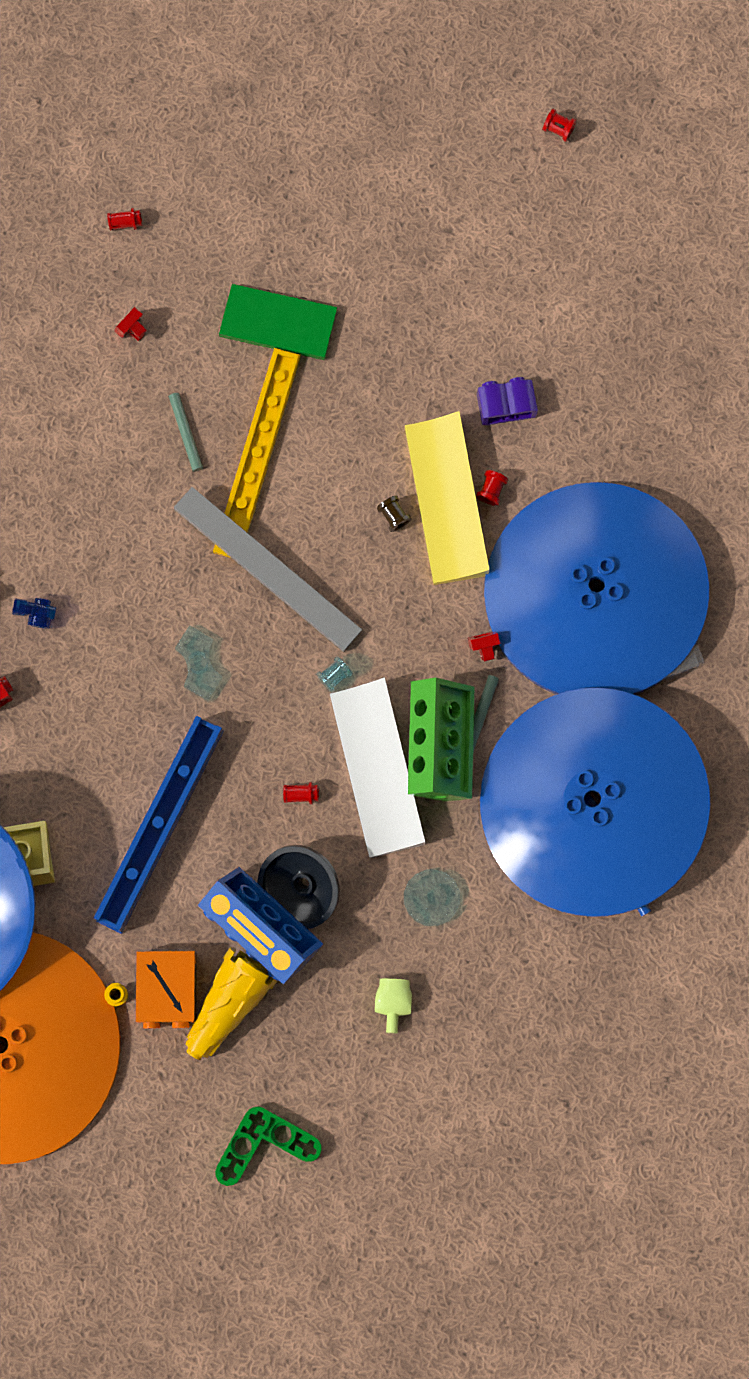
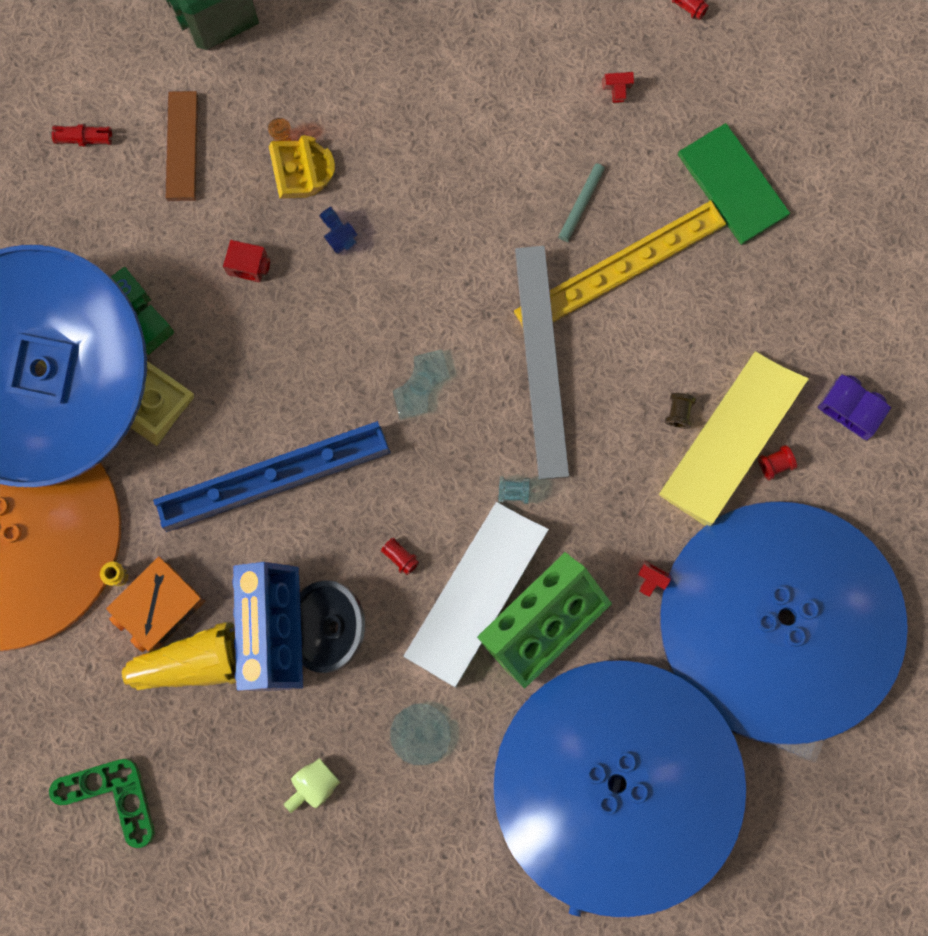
camera: 45 degrees right, 0 degrees up
(483, 706) = (604, 626): sand green bar -> none

